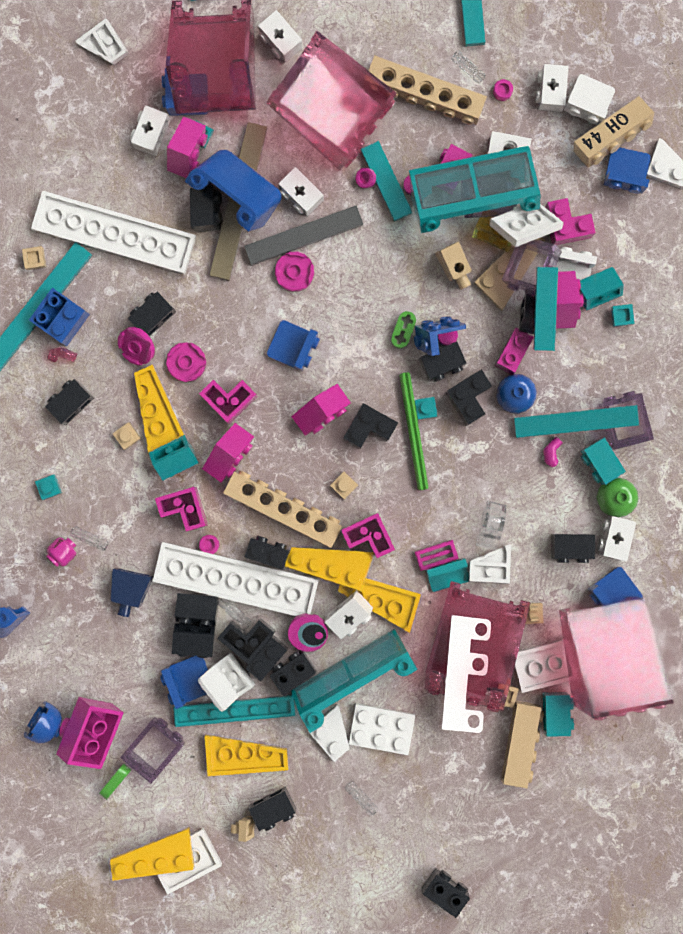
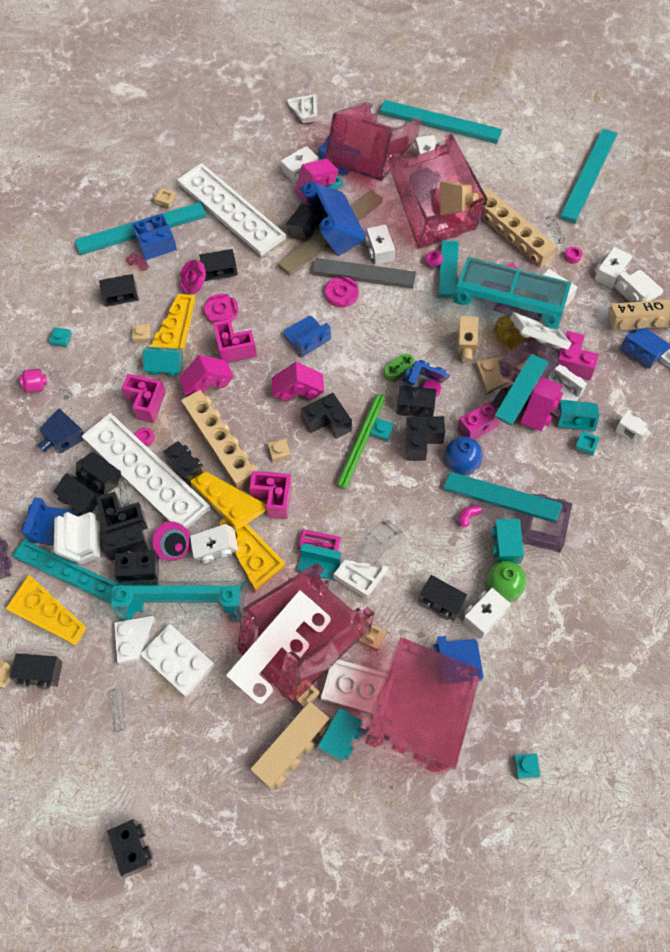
camera: 30 degrees right, 25 degrees down
(224, 676) = (79, 533): none -> white panel
(357, 100) = (455, 197): none -> tan torso
(655, 275) = (631, 427): none -> white brick

